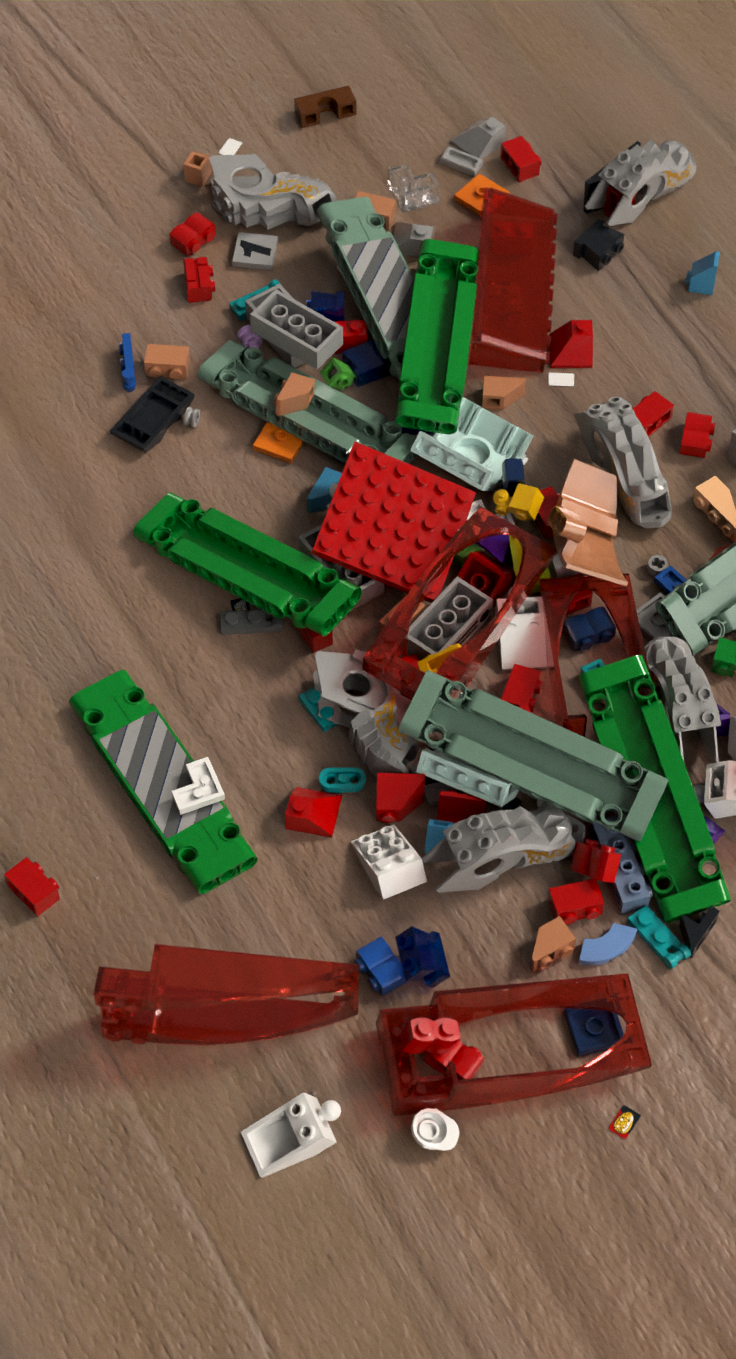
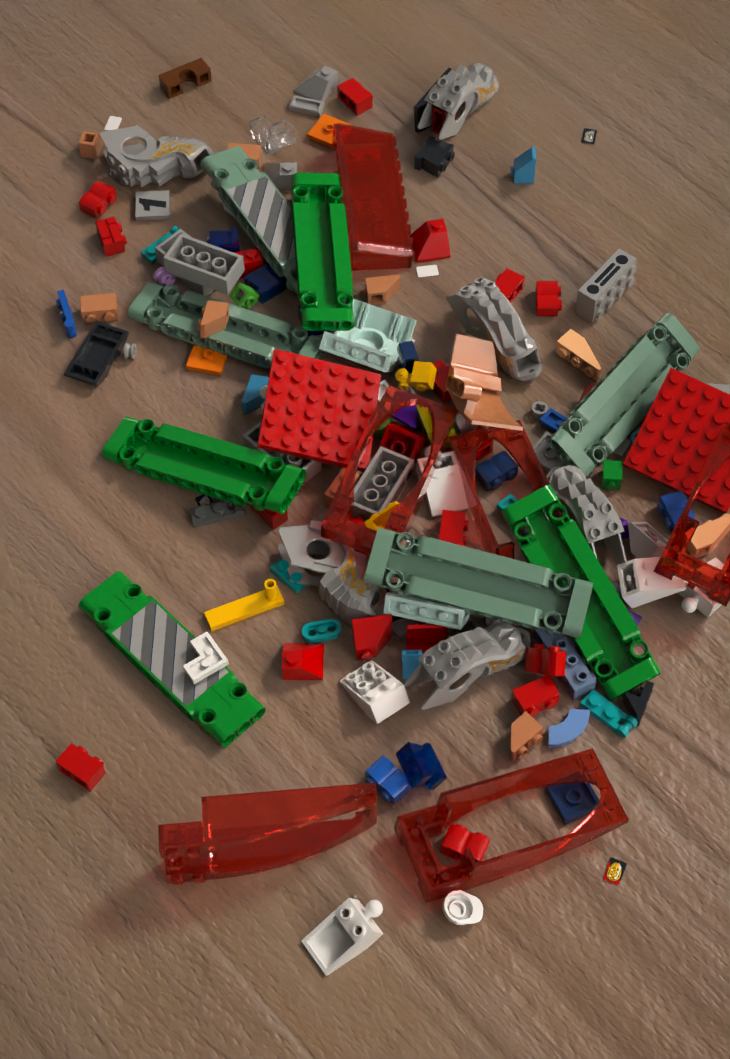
camera: 10 degrees left, 0 degrees up
(260, 737) = (245, 607): none -> yellow piece
(429, 1035) = (443, 830): red brick -> none

